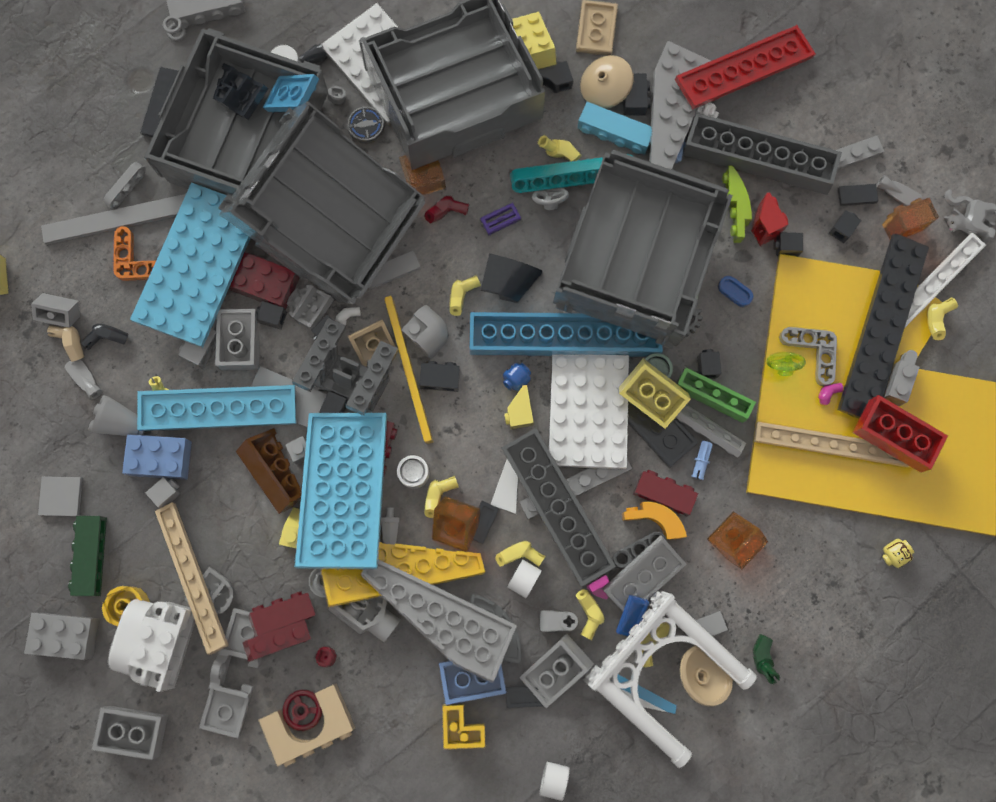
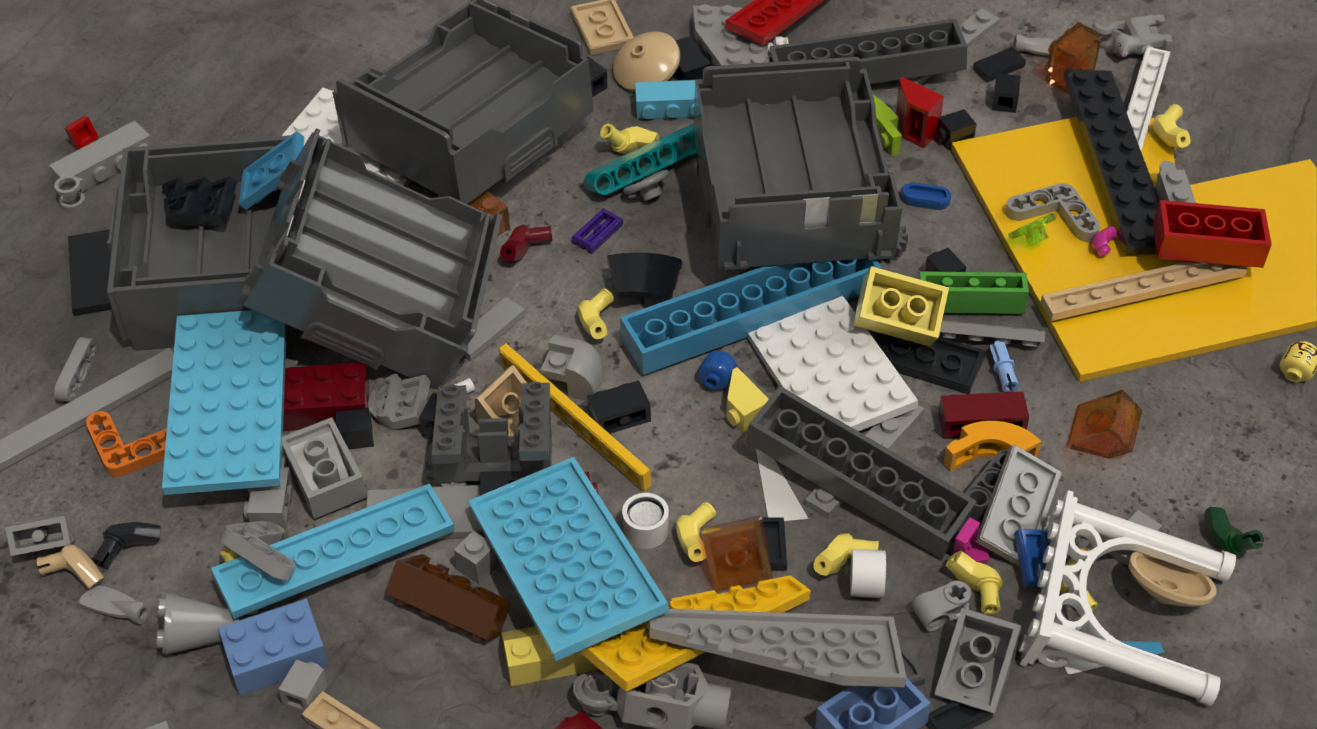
camera: 25 degrees left, 30 degrees down
(165, 386) = (253, 543): none -> light grey beam

